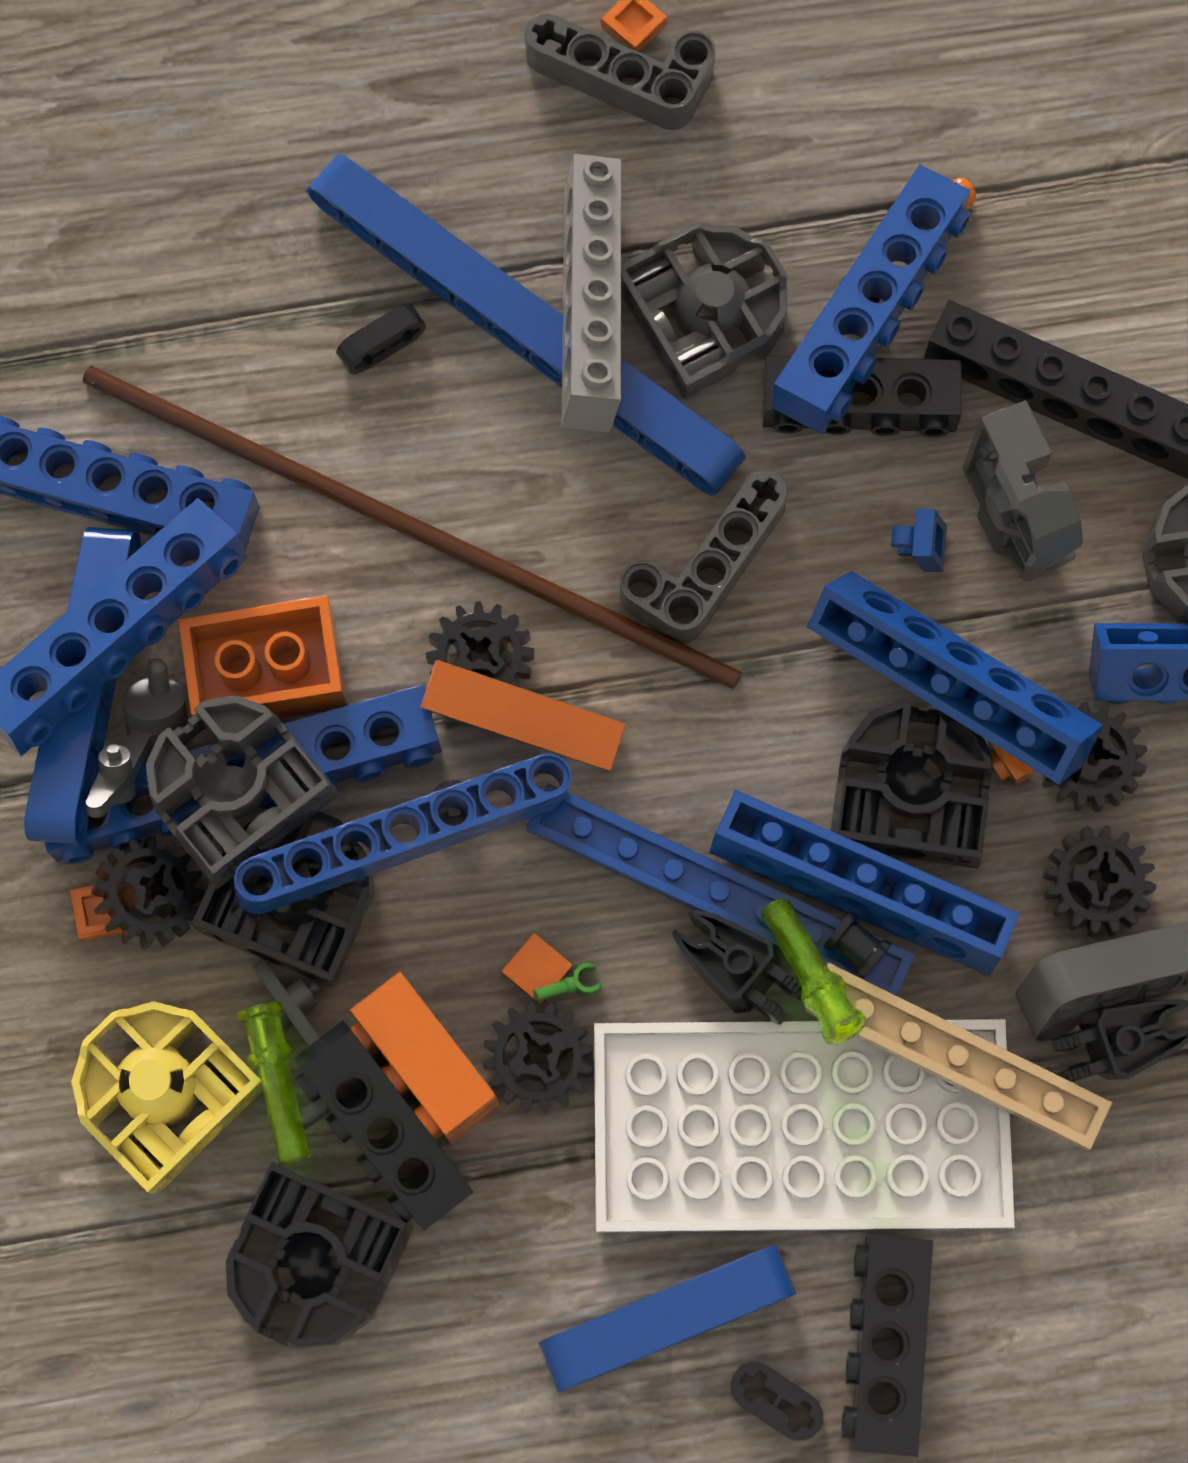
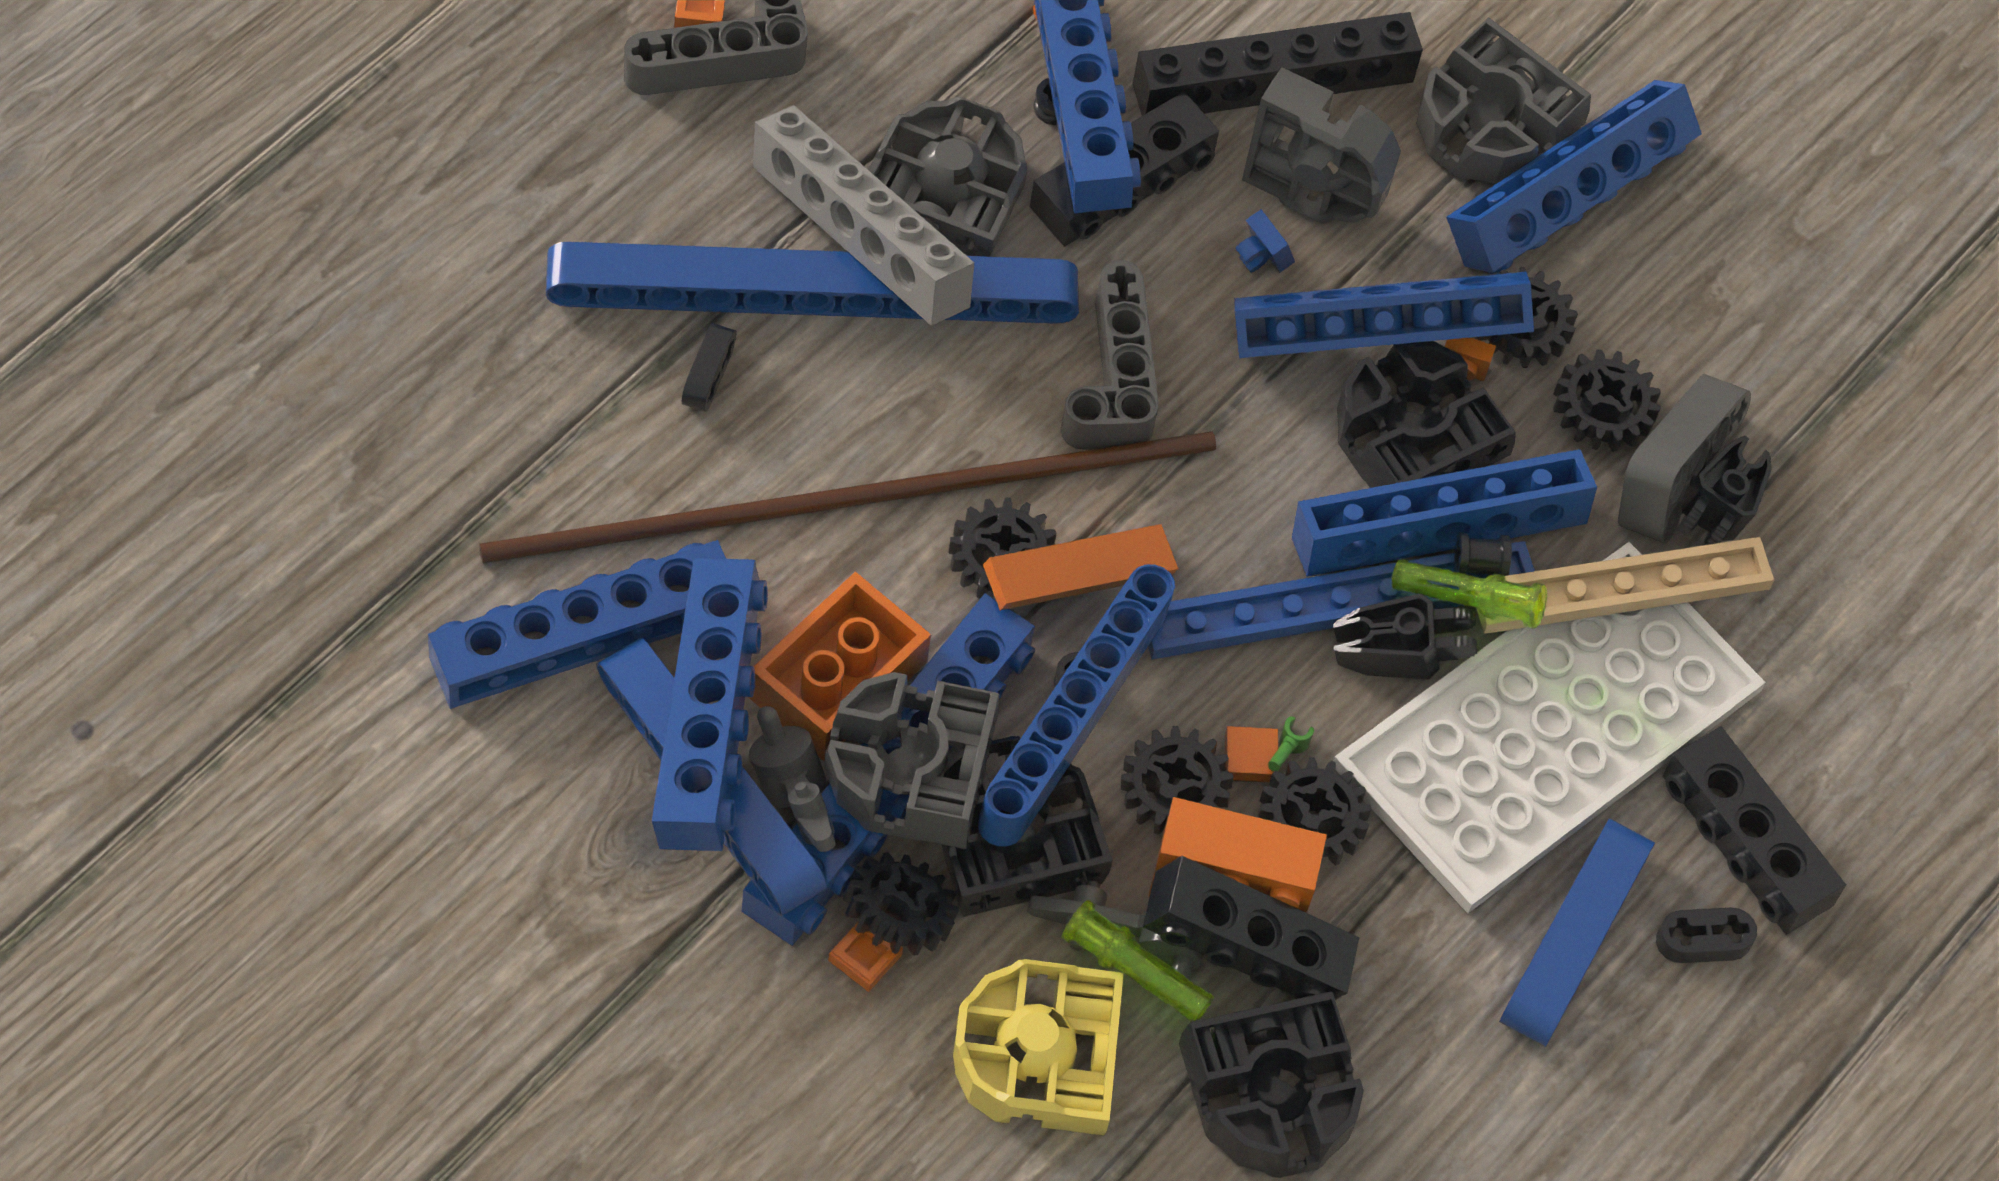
camera: 50 degrees left, 15 degrees down
(467, 942) = (1170, 759): none -> black gear

